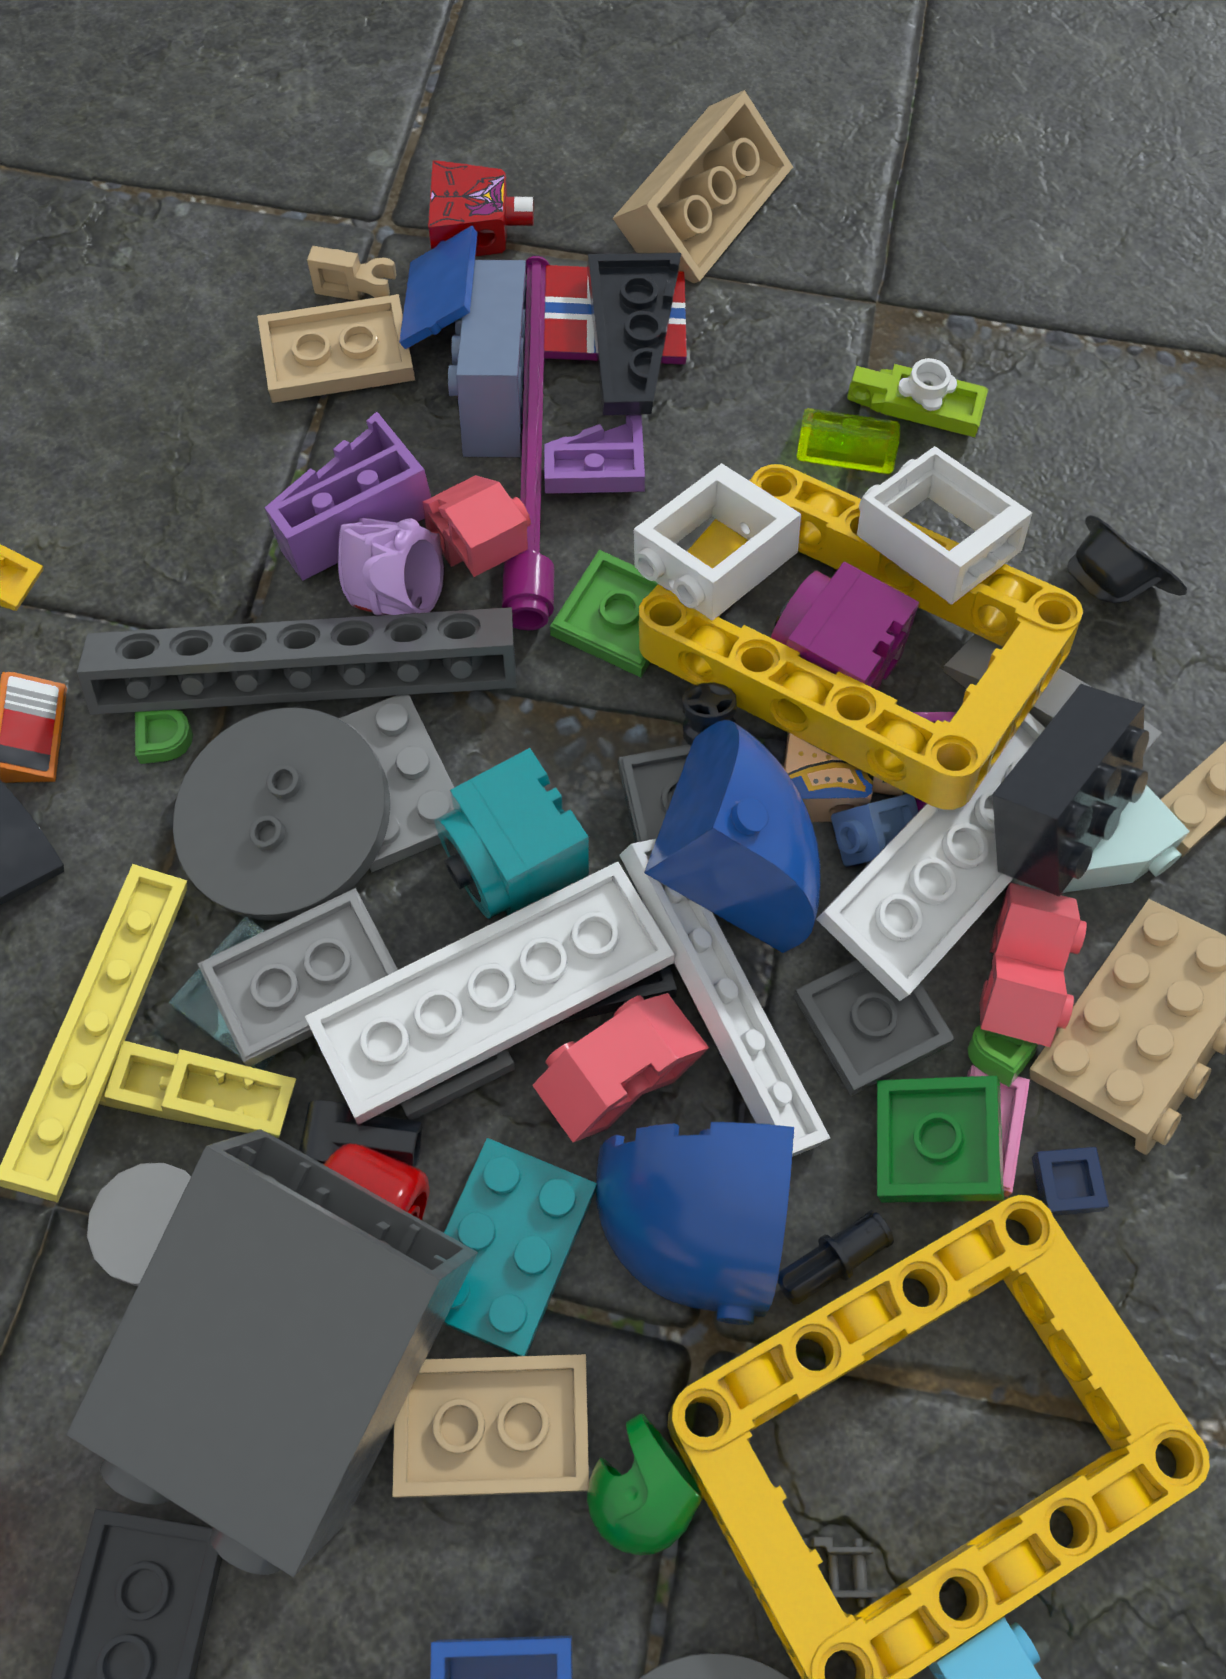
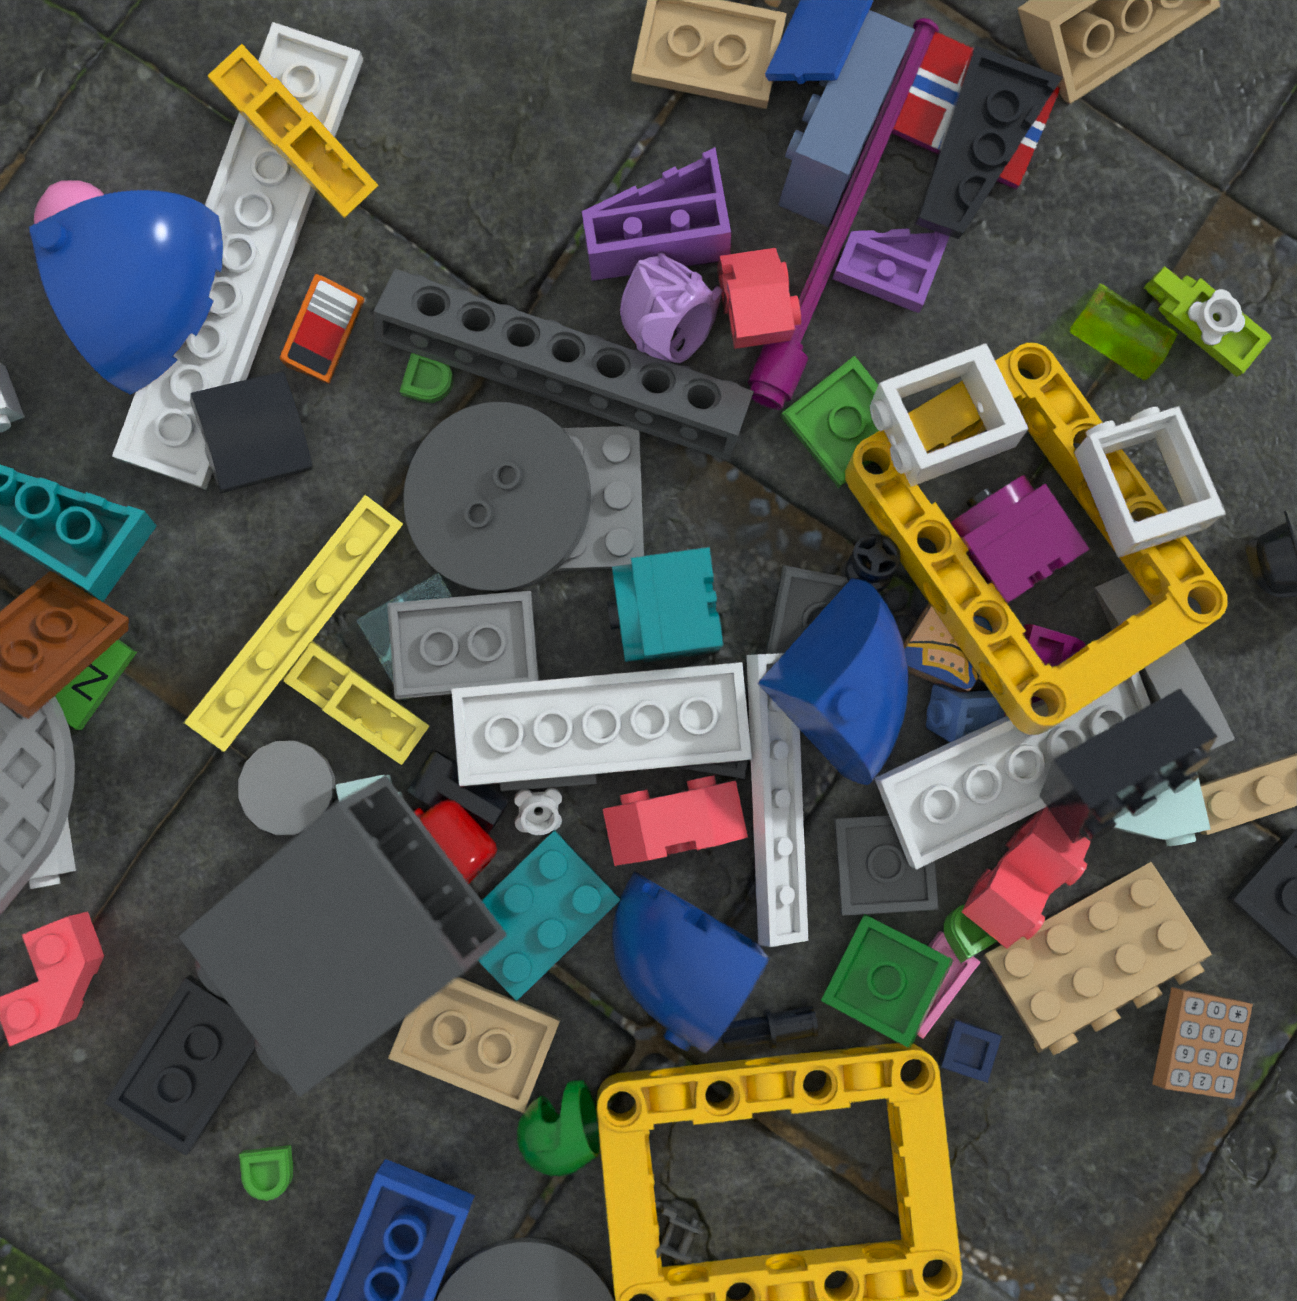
camera: 20 degrees right, 20 degrees up
(475, 1128) = (538, 822): none -> white plate

